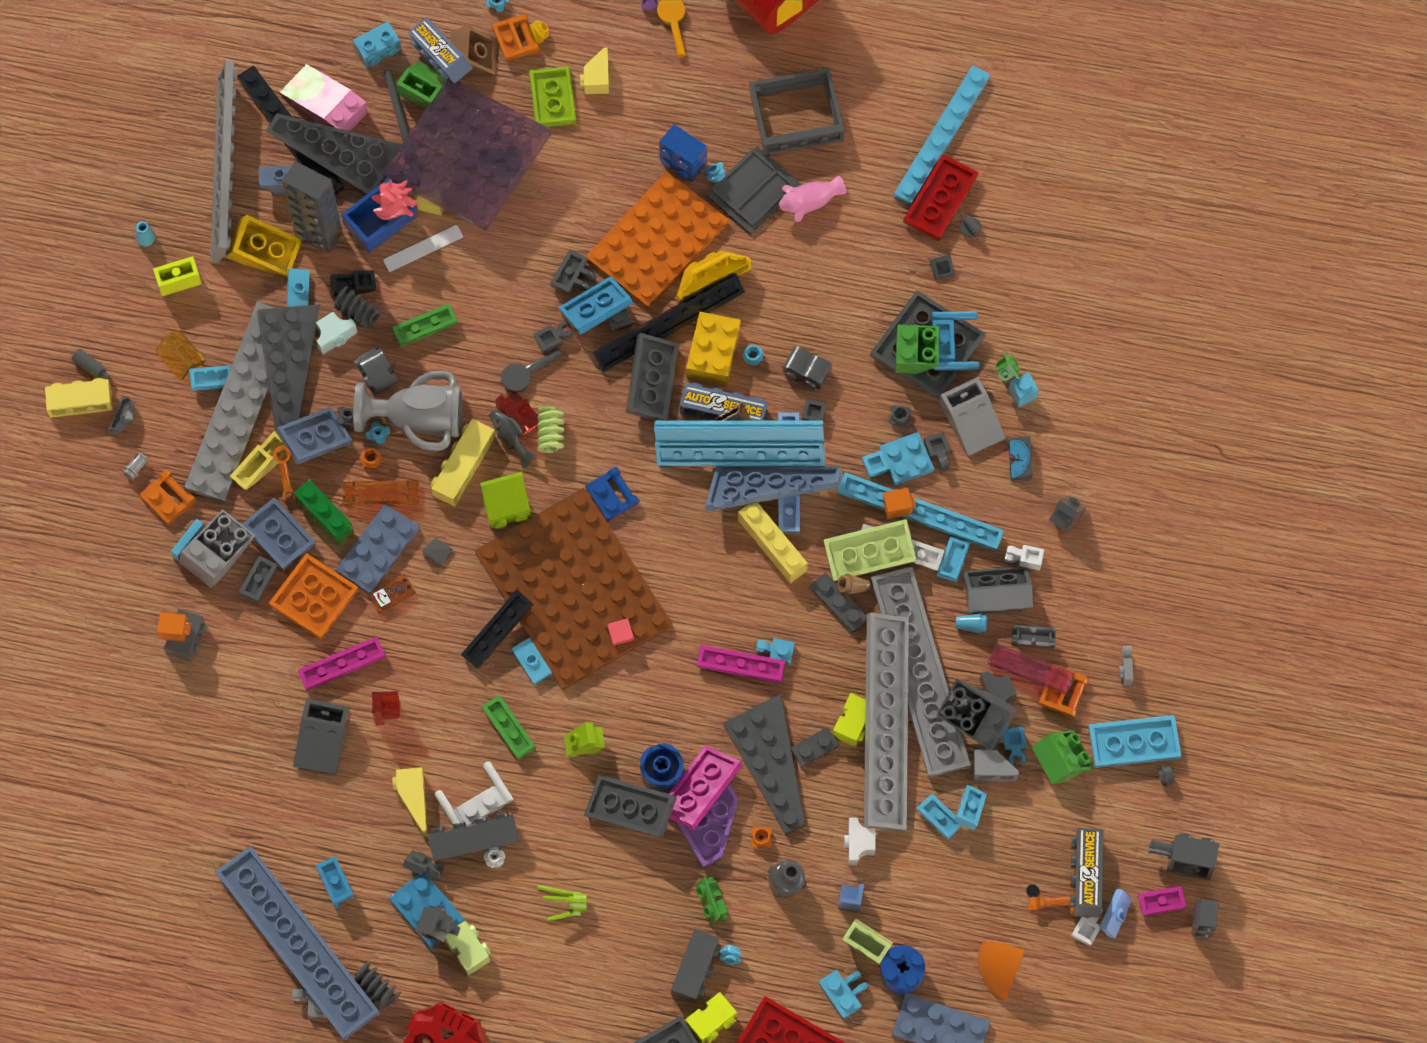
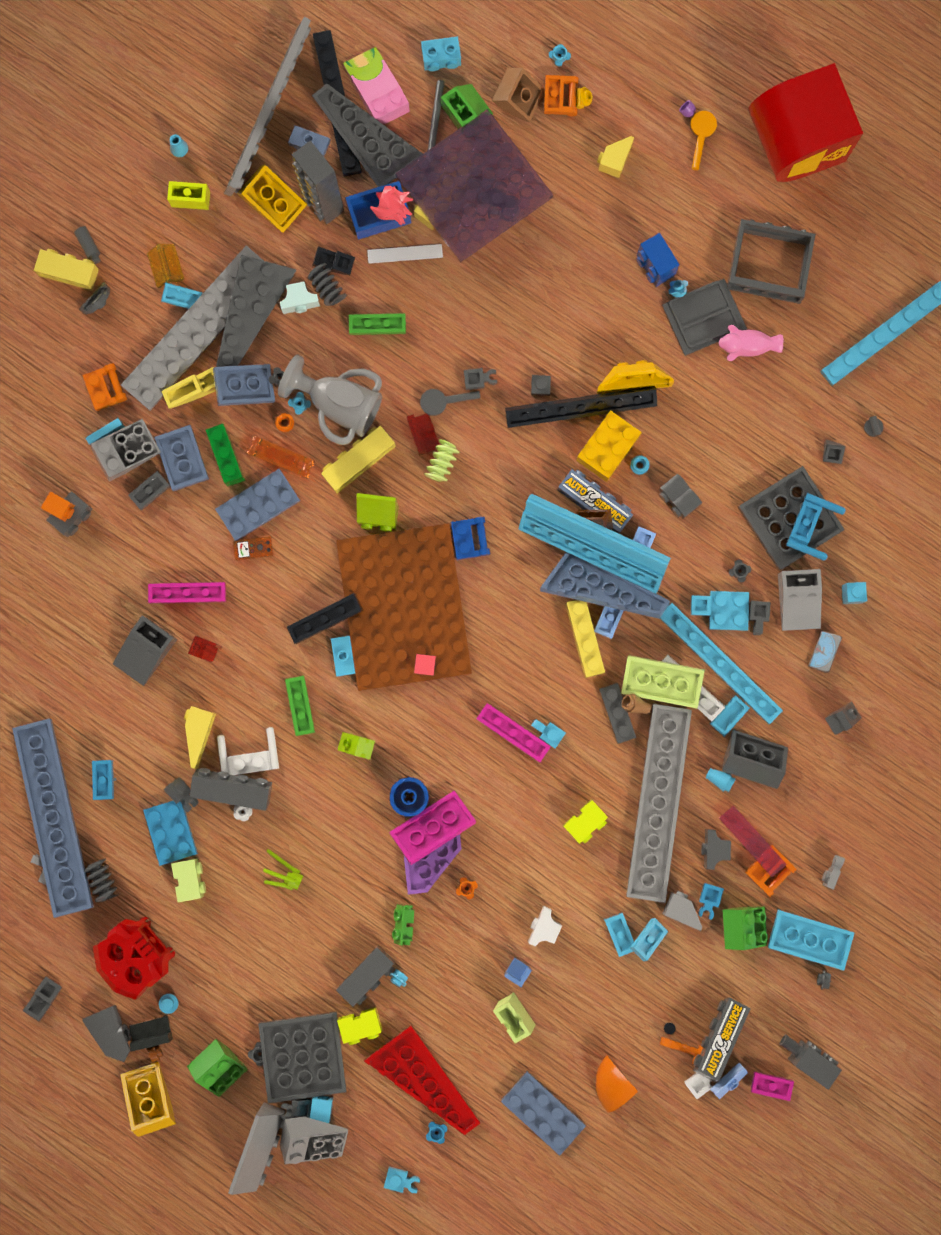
camera: 25 degrees right, 15 degrees up
(135, 466) = (89, 348): light grey pin -> none
(284, 470) = (207, 404): orange brick -> none
(297, 287) = (285, 247): medium azure plate -> none
(313, 596) = (188, 524): orange plate -> none
(376, 370) = (319, 349): dark grey brick -> none
(436, 924) = (167, 854): dark grey brick -> none
(437, 551) = (305, 527): dark grey slope -> none
(439, 50) = (490, 82): sand blue brick -> none
(509, 432) = (407, 449): dark grey animal -> none
(552, 96) = (569, 162): lime tile -> none
(569, 272) = (518, 326): dark grey hinge -> none
(595, 305) = (526, 366): dark azure plate -> none
(630, 806) = (368, 820): dark grey plate -> none
(652, 377) = (546, 451): dark grey plate -> none
(657, 239) = (603, 327): orange plate -> none
(766, 751) = (502, 817): dark grey wing -> none
(786, 879) = (470, 936): dark grey piece -> none
(813, 411) = (669, 537): dark grey plate -> none
(814, 747) = (543, 829): dark grey plate -> none
(840, 994) = (474, 1049): medium azure hinge -> none
(886, 722) = (611, 838): light grey plate -> none
(890, 968) = (535, 1064): blue brick -> none
(898, 503) = (704, 651): orange brick -> none
(916, 348) = (780, 521): bright green slope -> none
(940, 197) = (860, 390): red plate -> none
(977, 713) = (689, 866): dark grey slope -> none
(1007, 367) = (849, 569): bright green hinge -> none
(1028, 556) = (793, 741): white plate -> none
(1033, 636) = (764, 811): dark grey hinge -> none
(1204, 919) = (800, 1122): dark grey brick -> none

